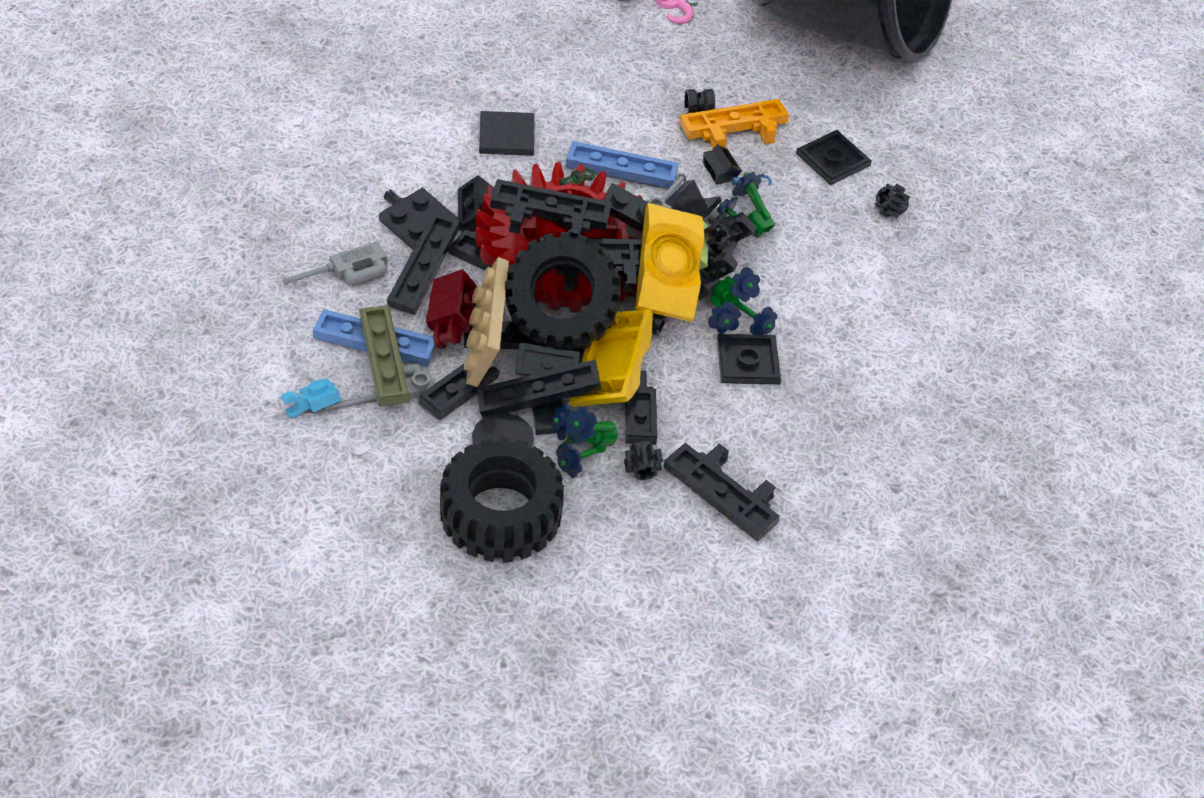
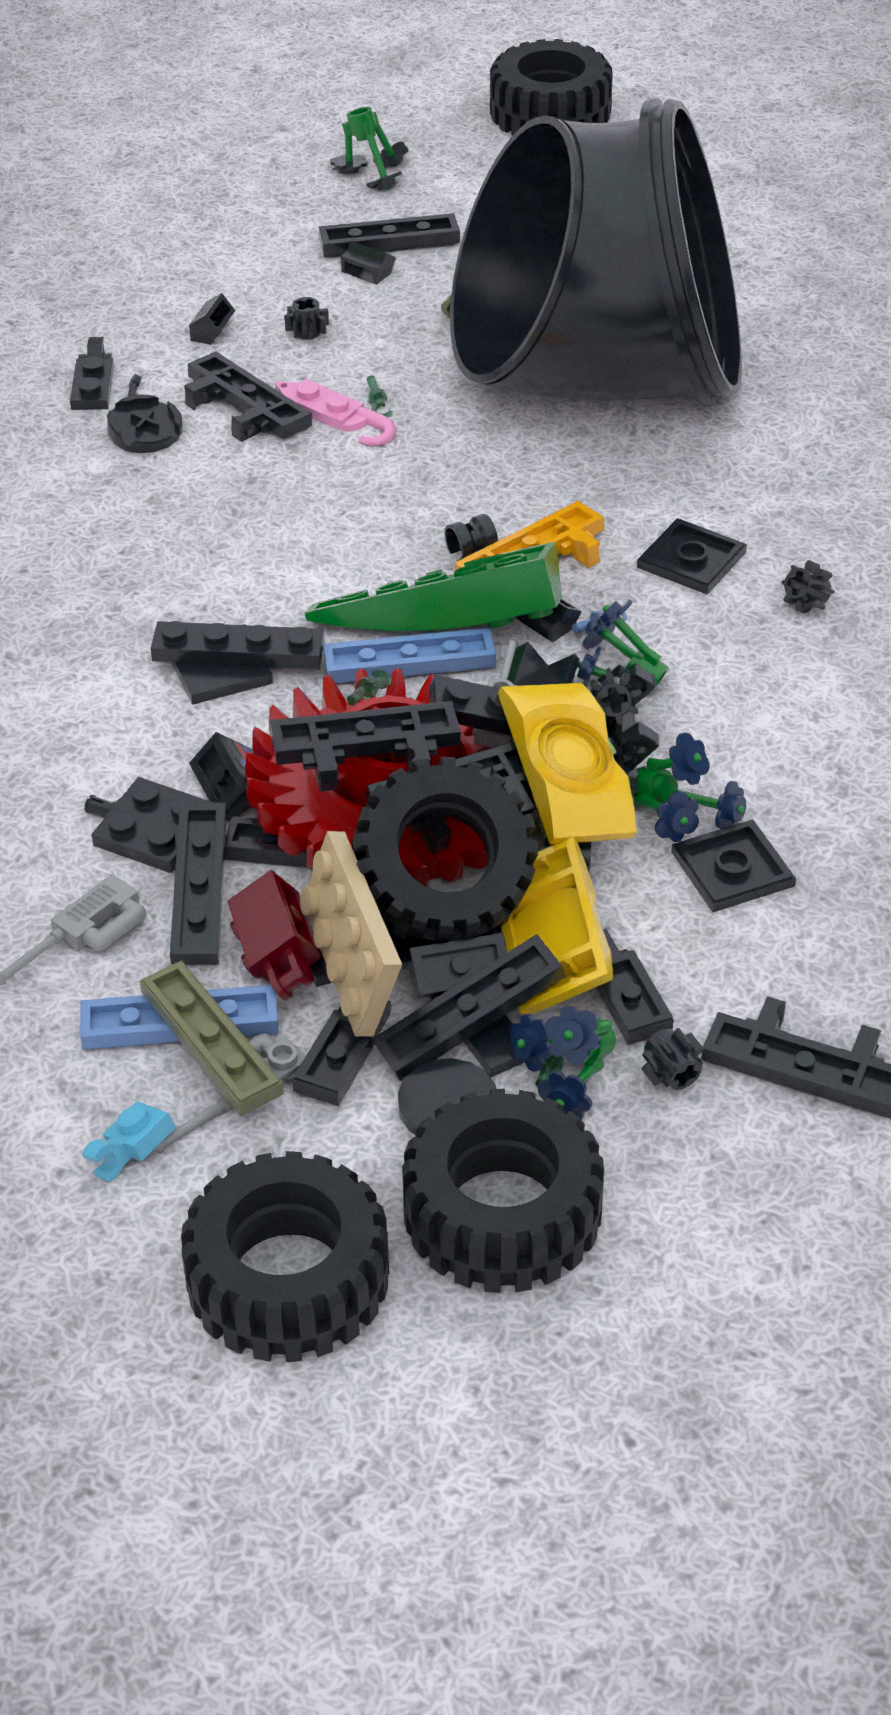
camera: 15 degrees left, 5 degrees down
(366, 524) = (297, 1309): none -> black tyre
(521, 125) = (237, 644): none -> black plate
(682, 140) = (478, 593): none -> green wedge

